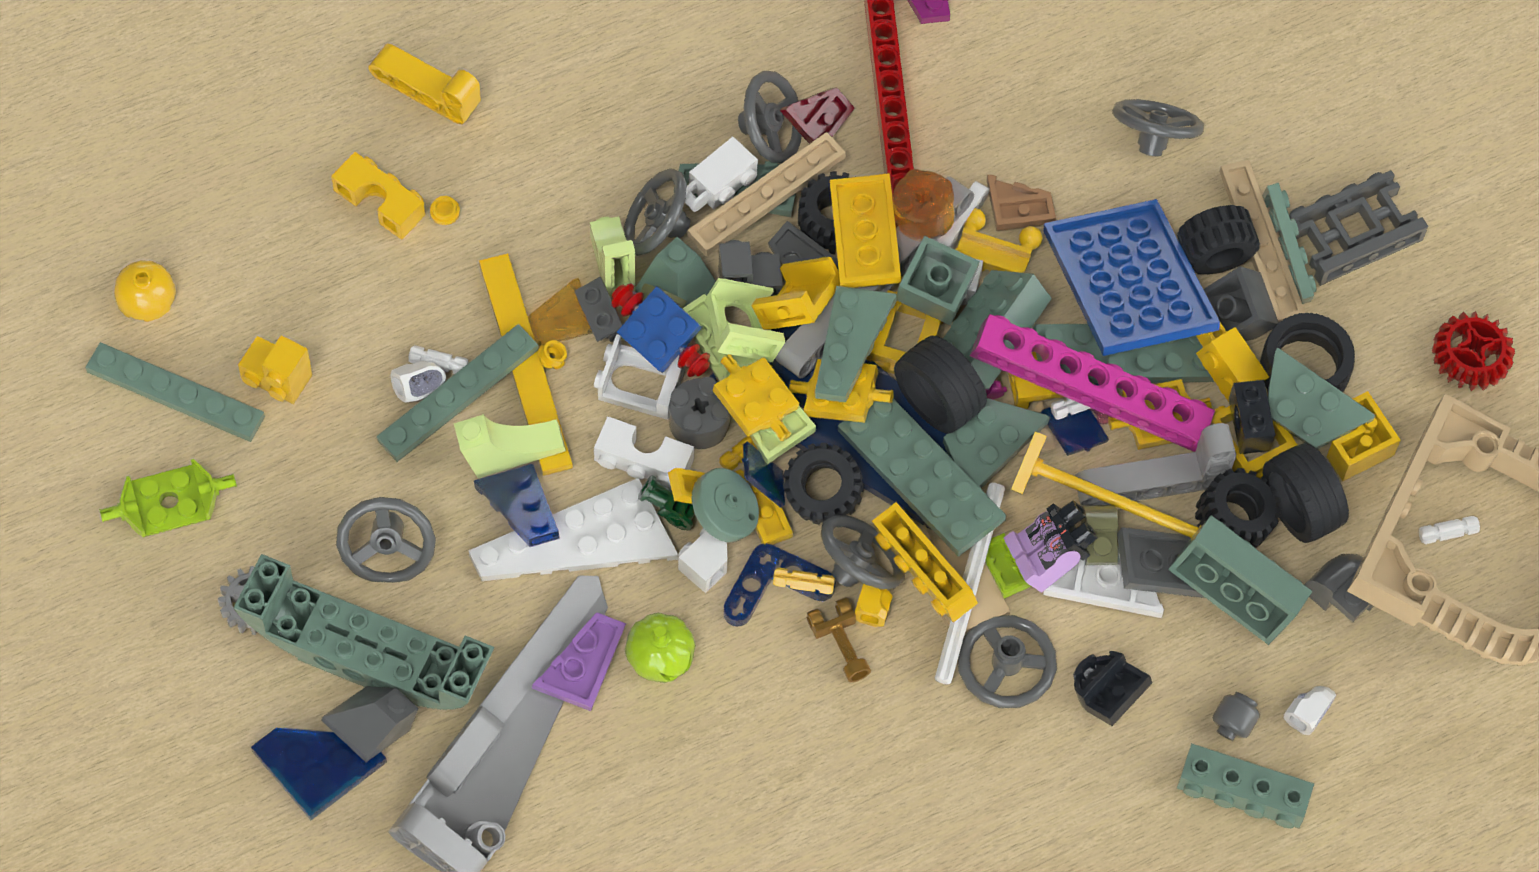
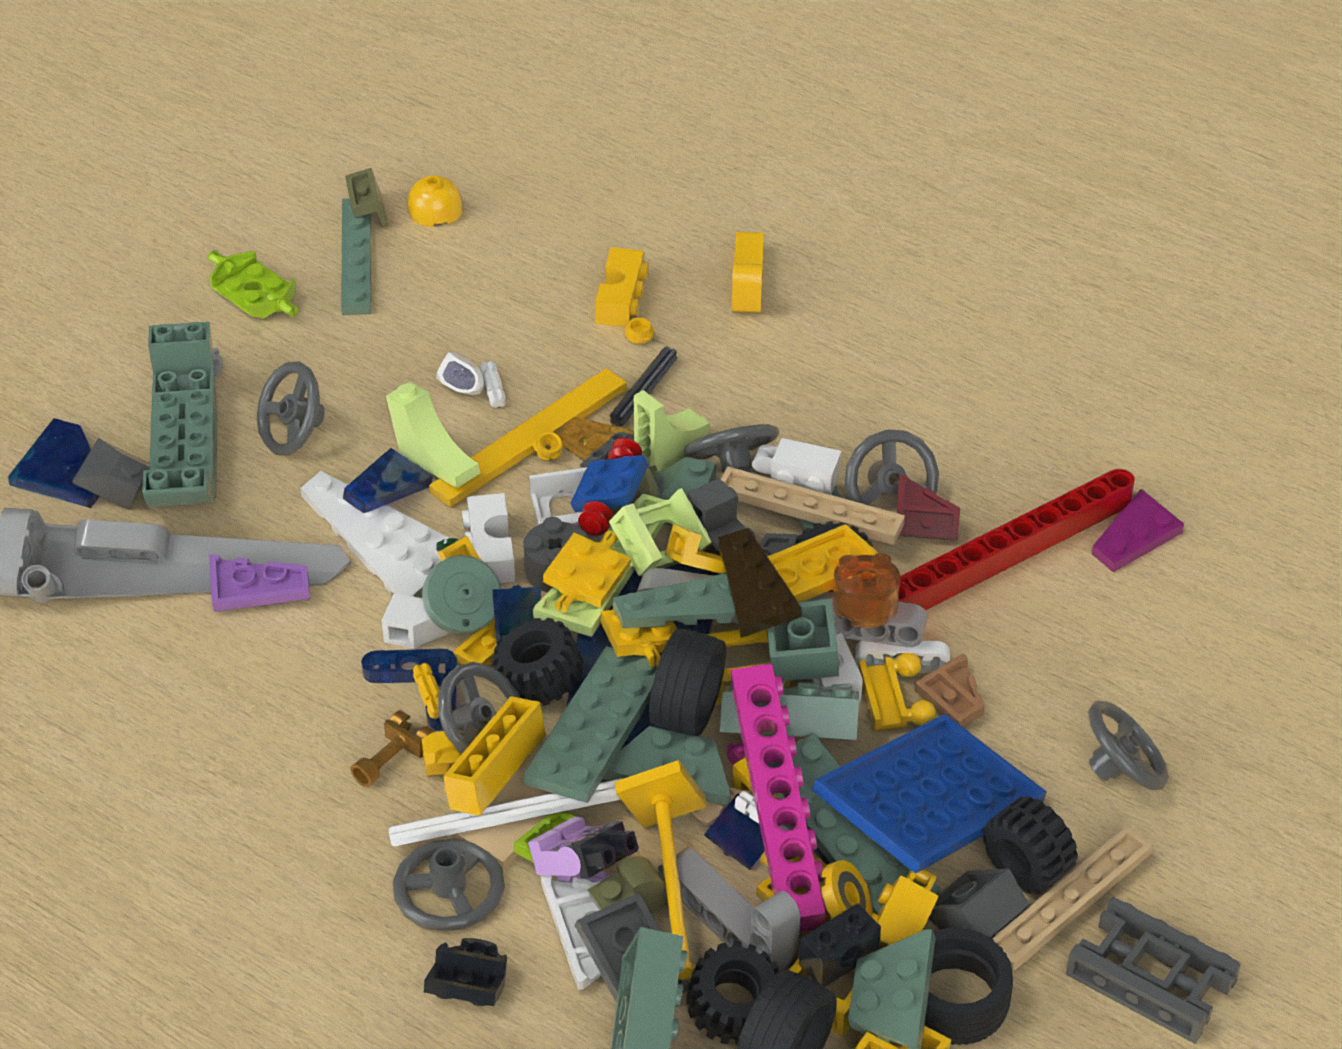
camera: 65 degrees right, 20 degrees down
(105, 344) = (365, 194): none -> olive panel
(277, 368) = (410, 291): yellow brick -> none
(457, 393) = (482, 406): sand green plate -> none
(518, 243) = (646, 382): none -> black axle
(660, 647) = (297, 615): lime piece -> none
(886, 282) = (754, 584): none -> dark brown wing
(1194, 384) = (844, 888): none -> yellow tile
(1288, 230) = (1081, 910): sand green wing -> none

